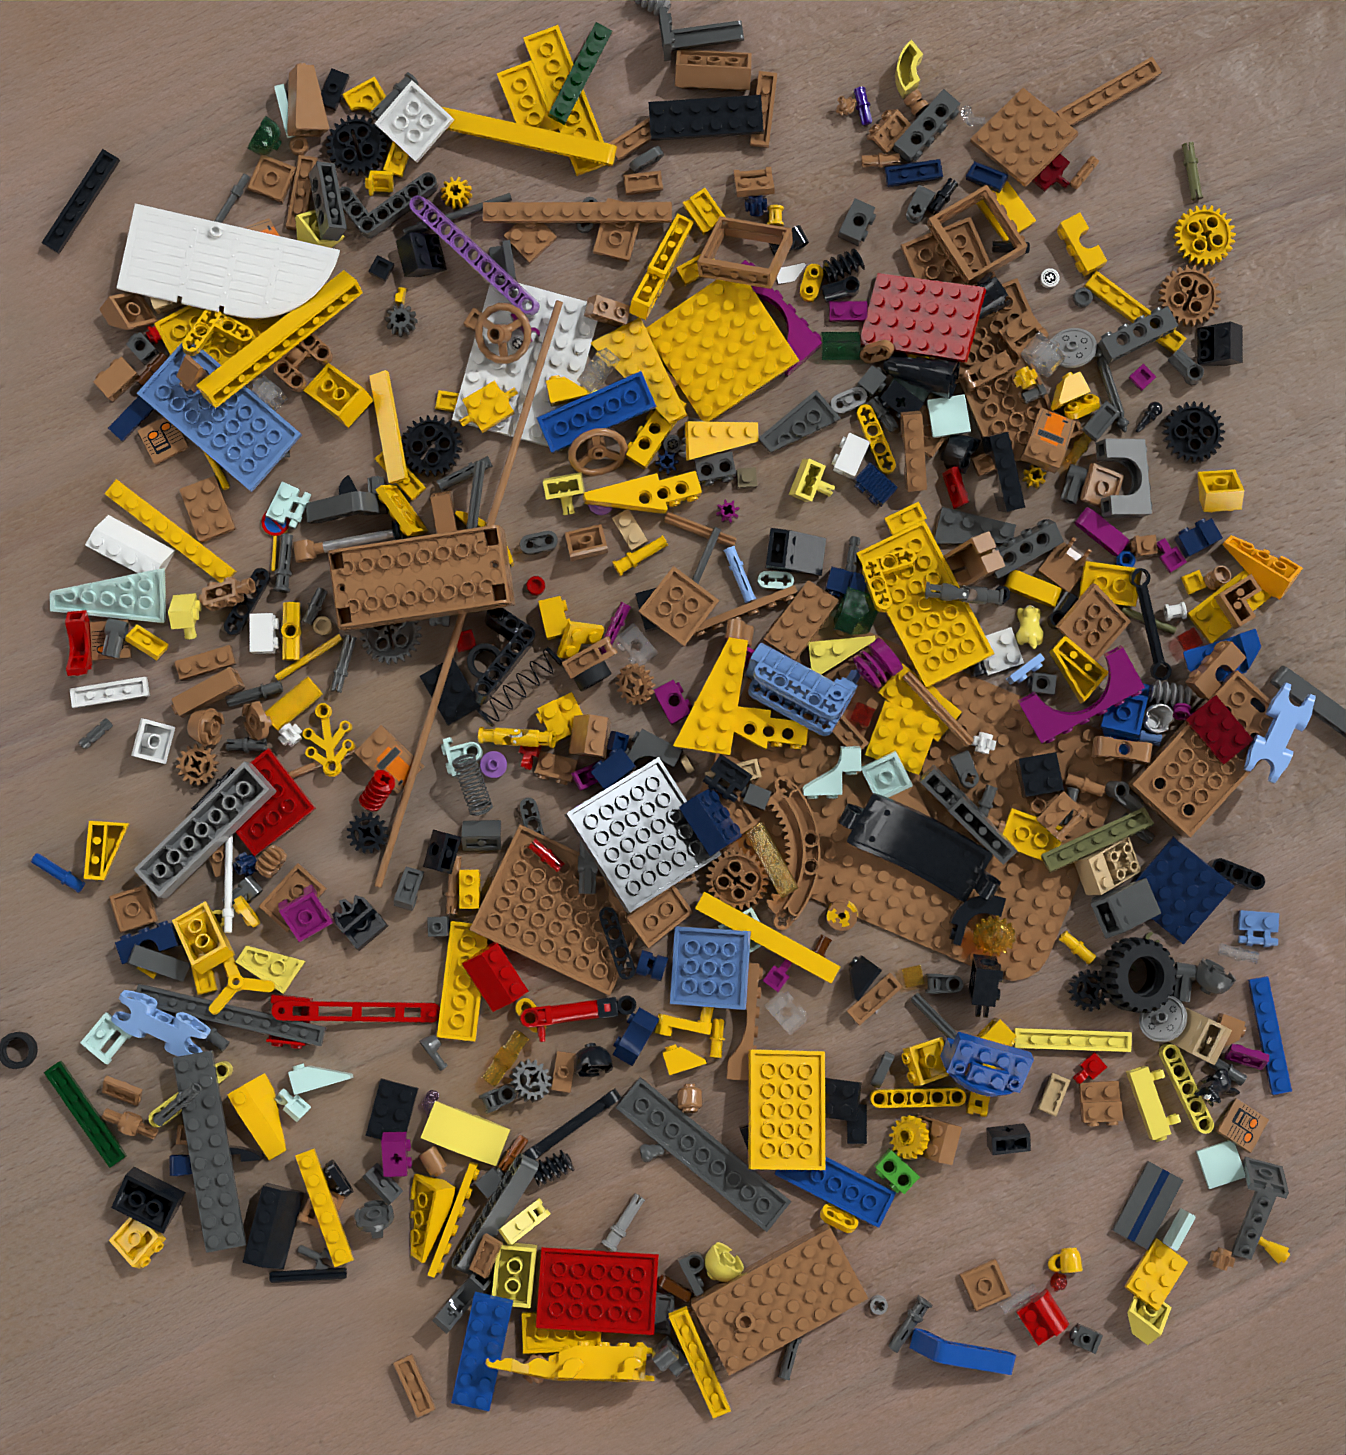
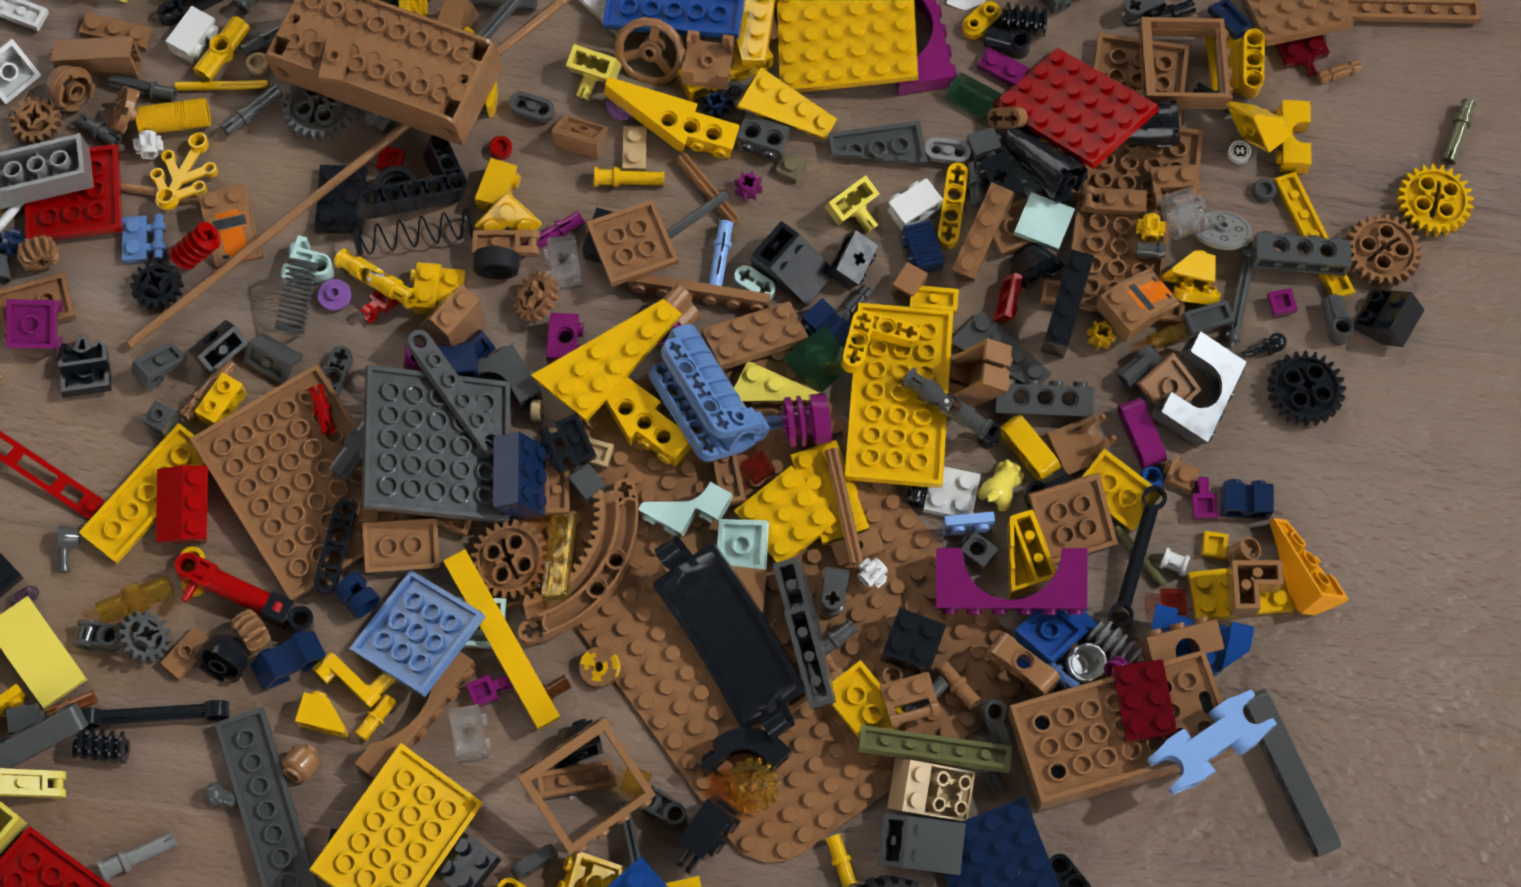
camera: 30 degrees right, 15 degrees down
(328, 808) = (135, 239): none -> medium blue plate
(394, 604) = (335, 59): none -> medium nougat plate
(555, 767) = (393, 333): medium nougat bracket -> none
(599, 1033) = (250, 631): none -> medium nougat gear
(630, 791) = (452, 390): none -> dark grey plate
(645, 437) = (707, 62): none -> medium nougat panel
(833, 524) = (852, 259): none -> brick
(865, 993) = (562, 751): none -> medium nougat window
(882, 516) = (909, 280): none -> medium nougat panel
(1023, 215) = (1250, 72): none -> yellow beam
(1056, 253) = (1258, 125): none -> yellow slope
(1220, 490) = (1300, 465): yellow slope -> none

